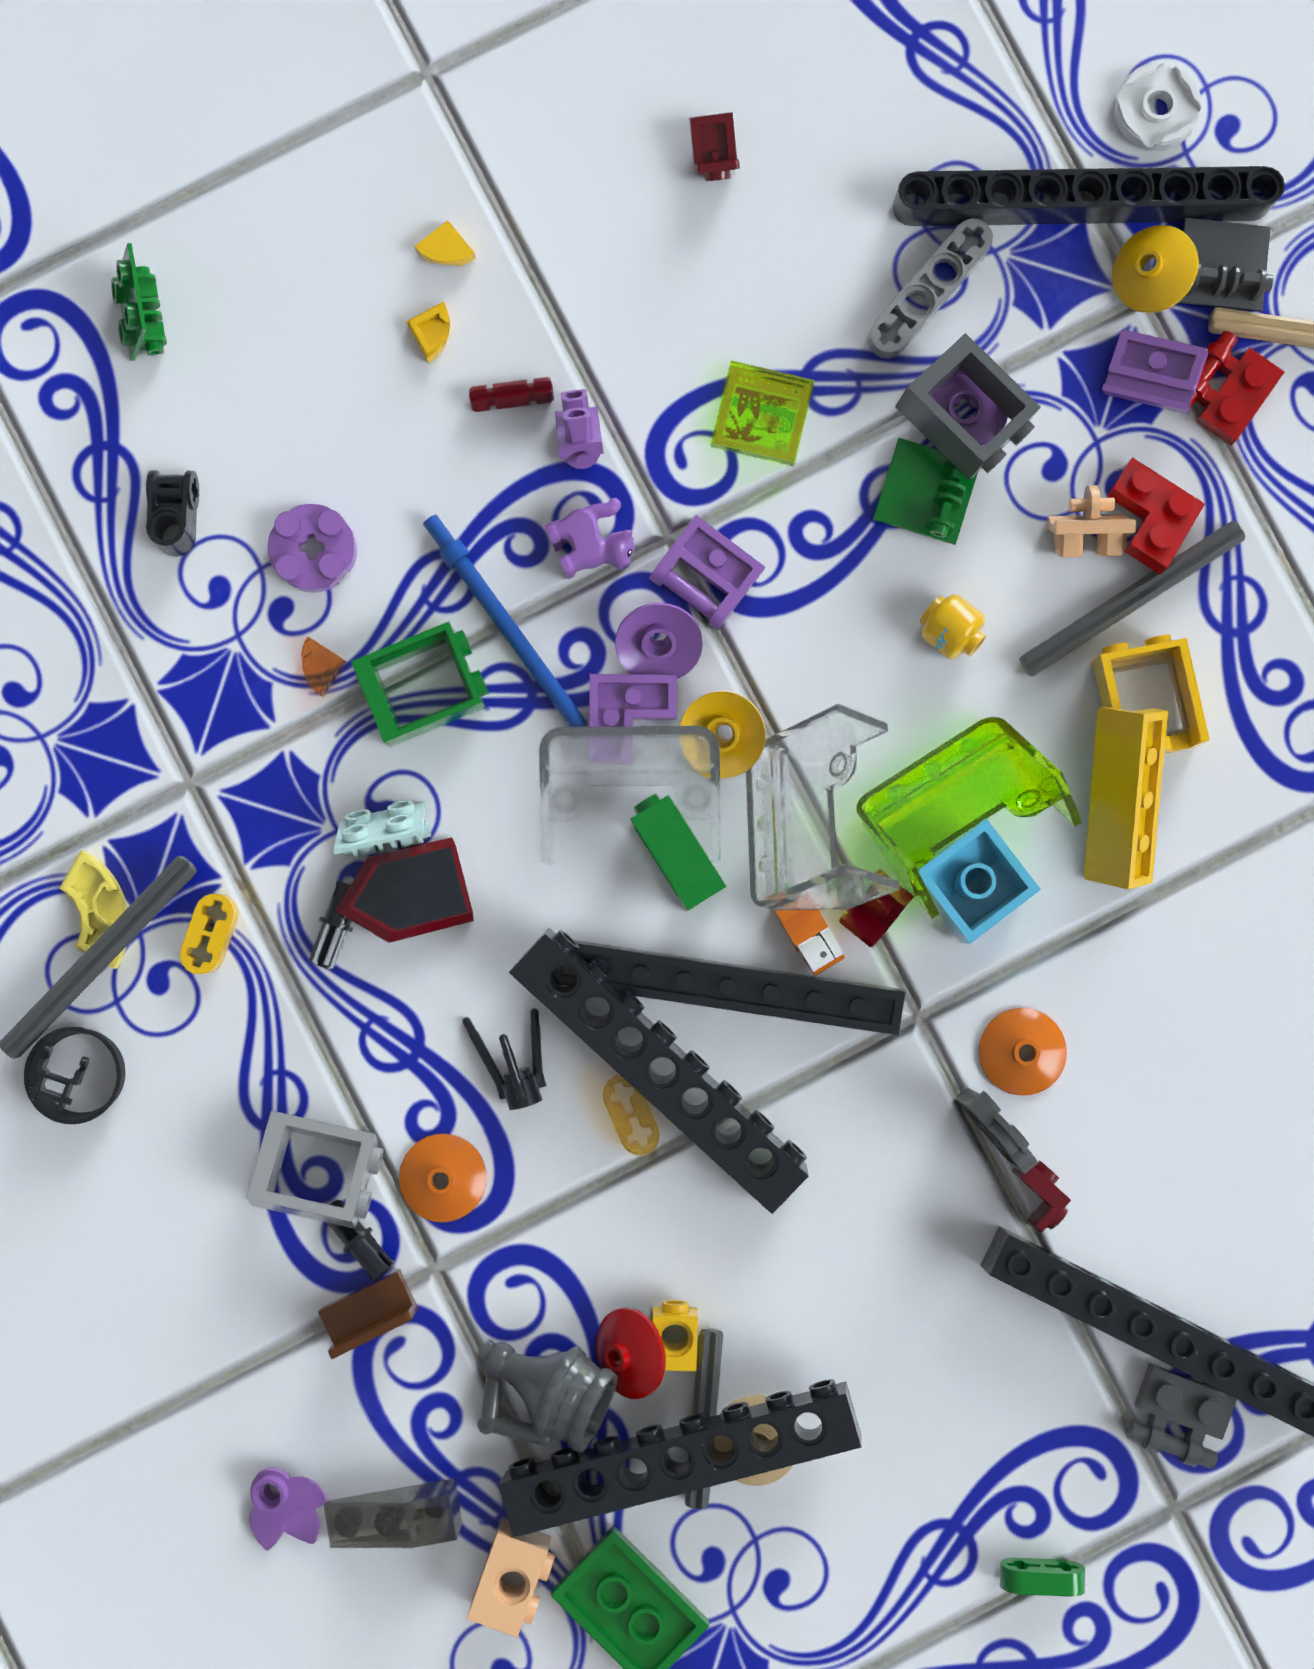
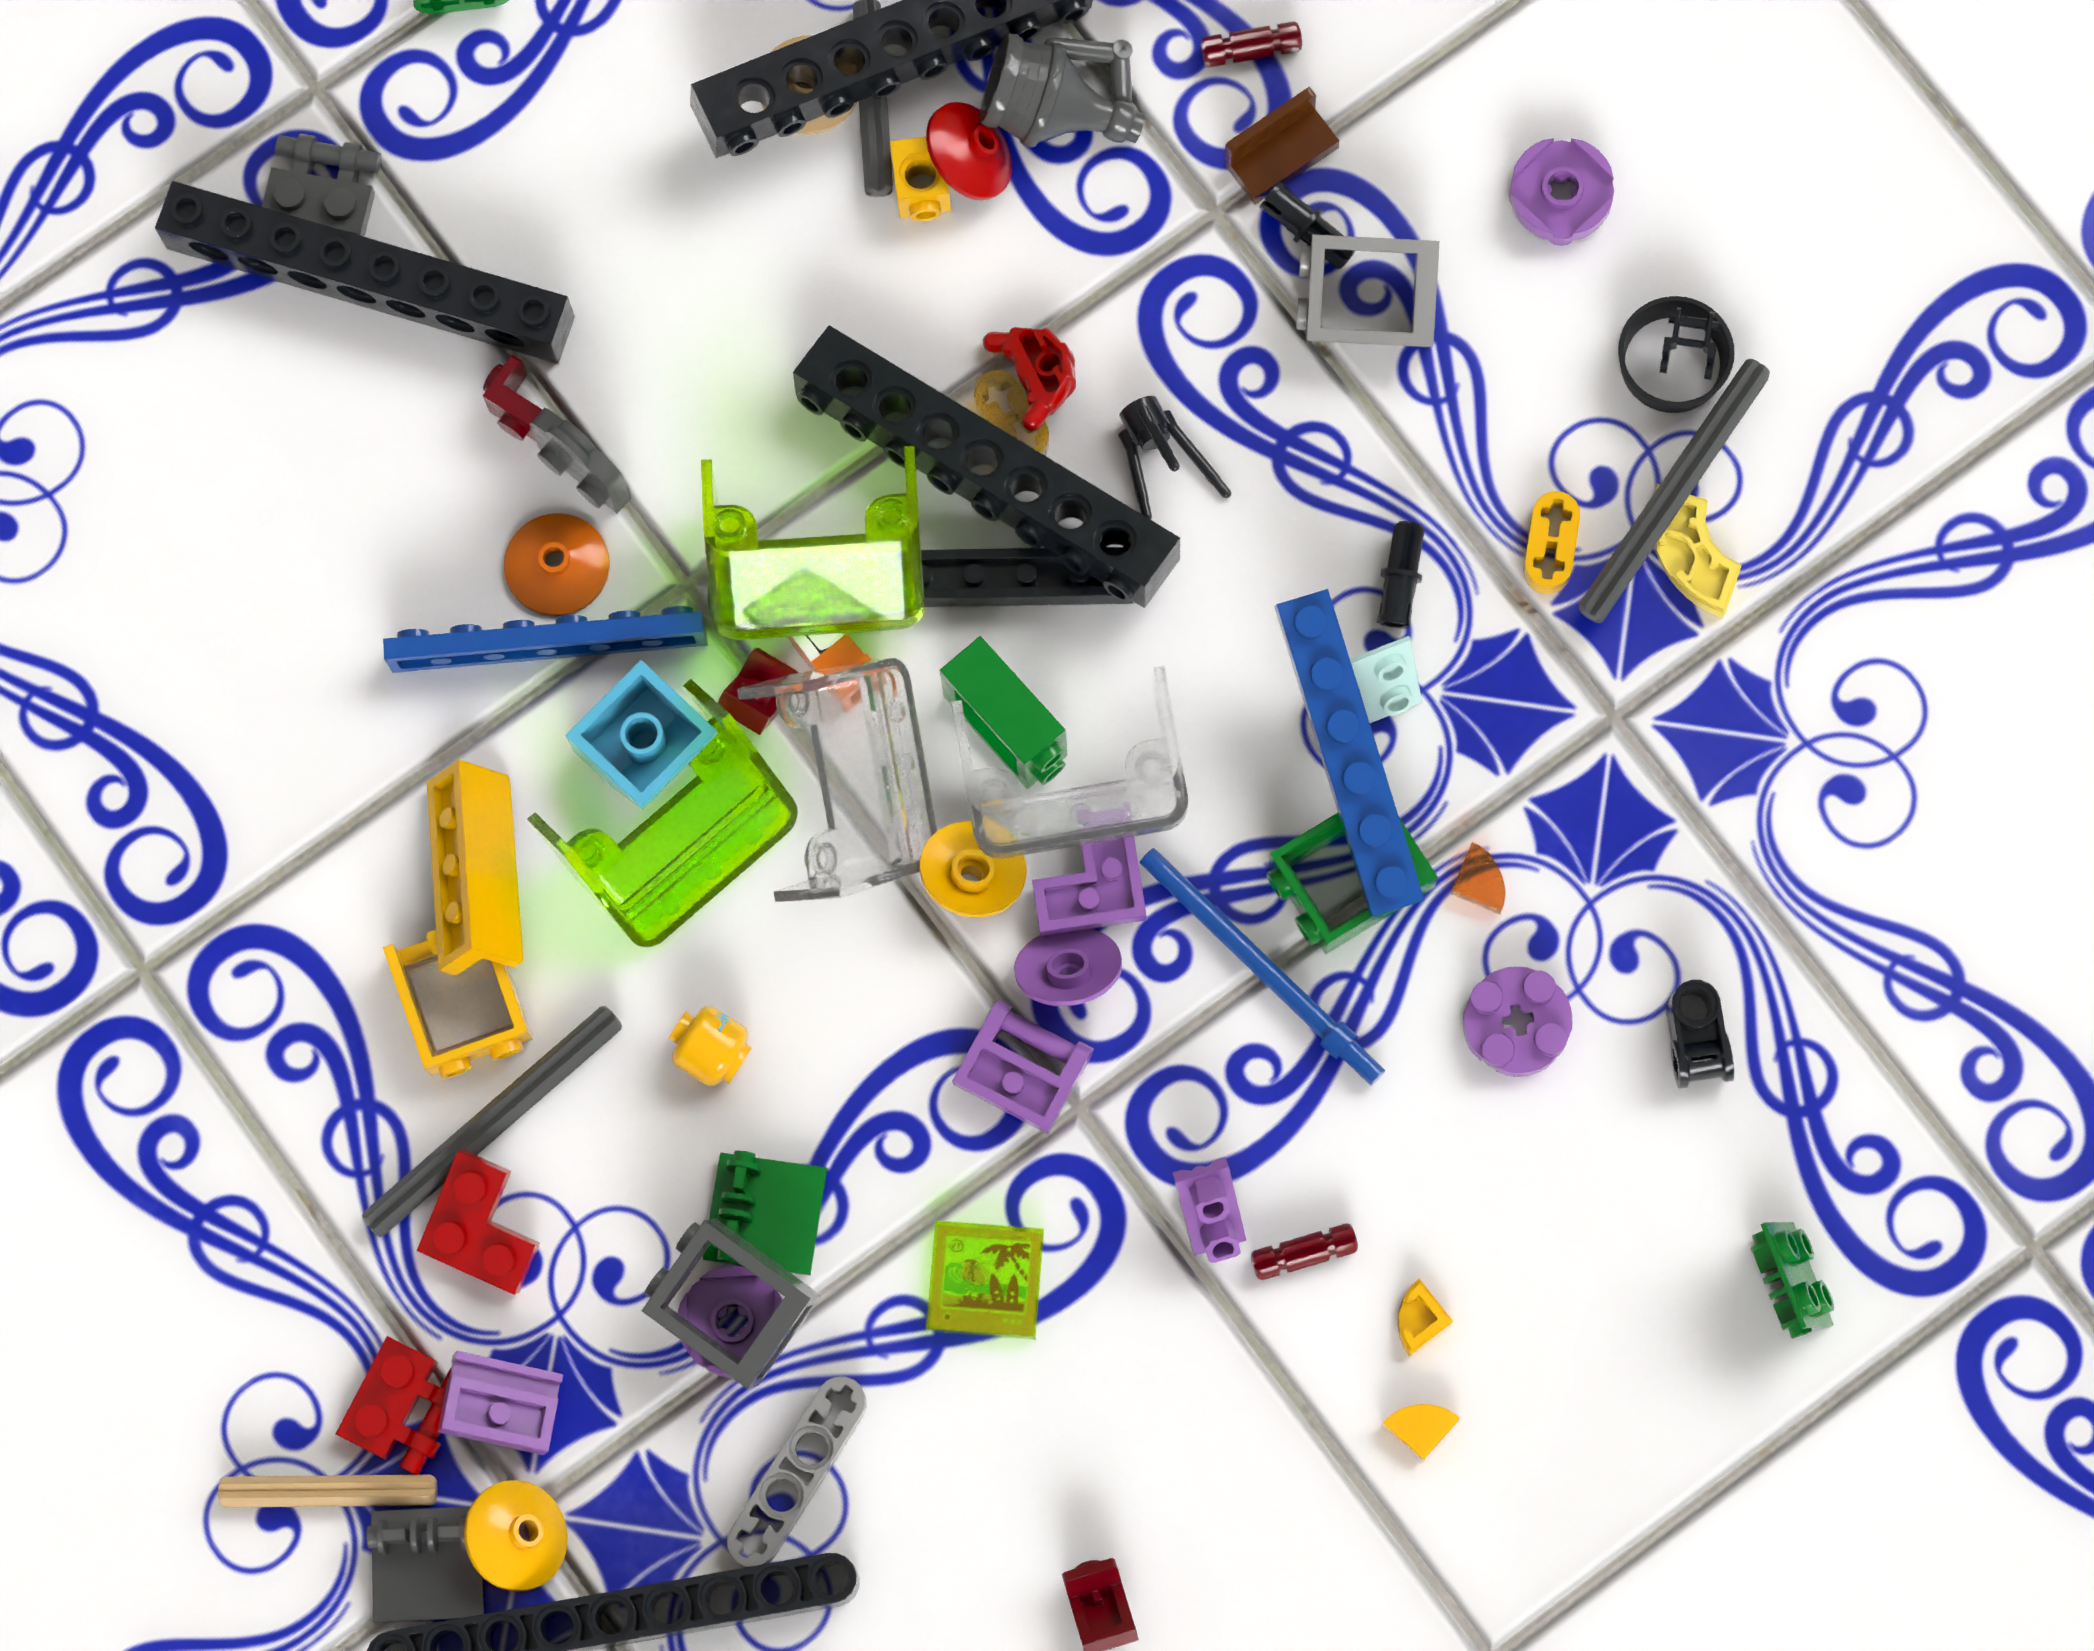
camera: 175 degrees right, 10 degrees down
(116, 1229) = (1561, 161): none -> medium lavender plate
(376, 1412) = (1251, 44): none -> dark red axle
(401, 766) = (1349, 753): none -> blue plate
(409, 892) = (1360, 603): black tile -> none
(454, 1158) = (1222, 336): orange dish -> none
(583, 534) = (1175, 1073): medium lavender animal -> none
(599, 1150) = (1042, 367): none -> red piece
(816, 983) = (815, 581): none -> clear neon green windscreen
(1061, 987) = (526, 642): none -> blue plate
(1110, 529) = (557, 1201): light nougat hips -> none

